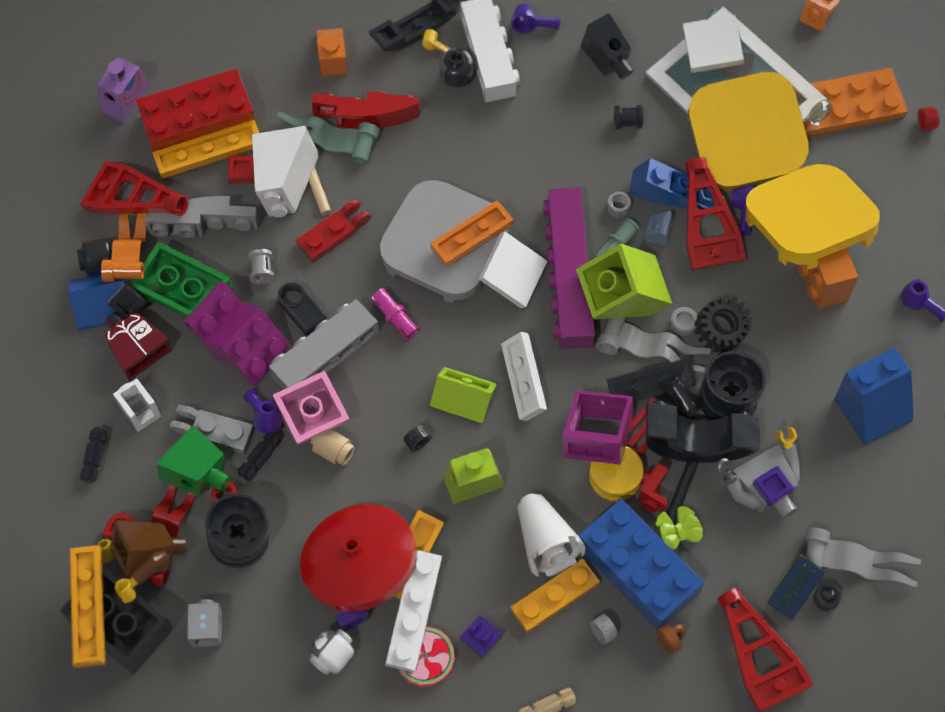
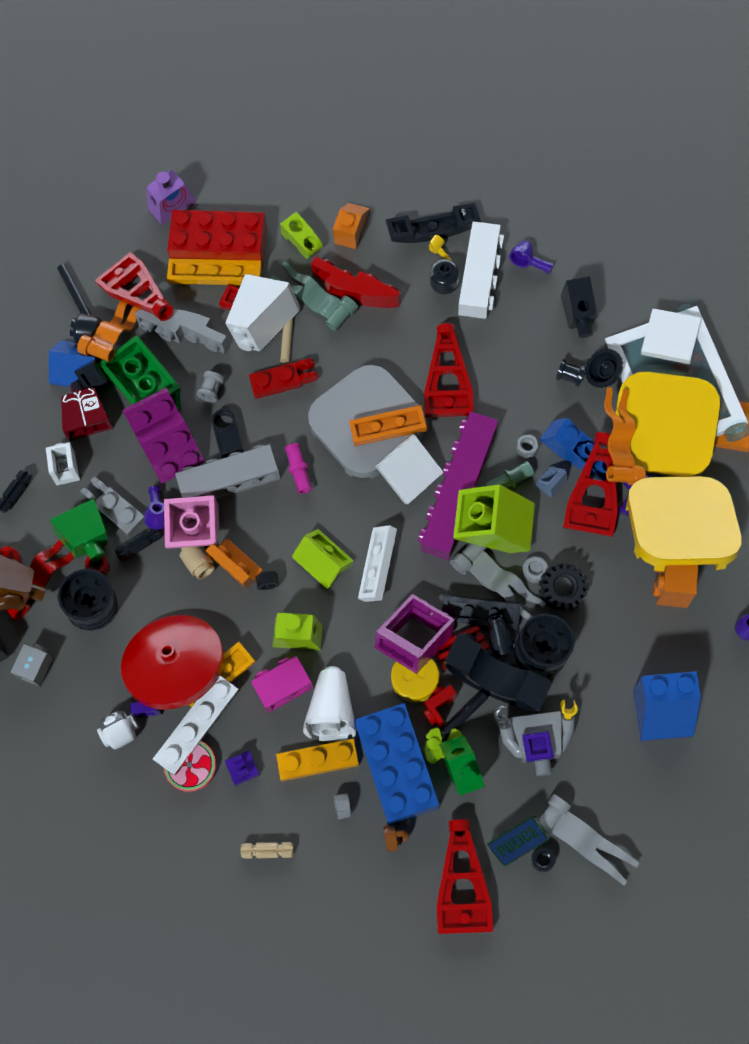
camera: 30 degrees right, 5 degrees up
(57, 222) = (72, 288): none -> black bar
(284, 79) = (301, 235): none -> lime leg
(374, 433) = (234, 562): none -> orange bracket
(482, 534) = (281, 683): none -> dark pink brick
(515, 192) = (453, 402): none -> red plate
(660, 99) = (604, 368): none -> black hat
(710, 539) = (461, 767): none -> green torso
(729, 186) = (619, 443): none -> orange flag

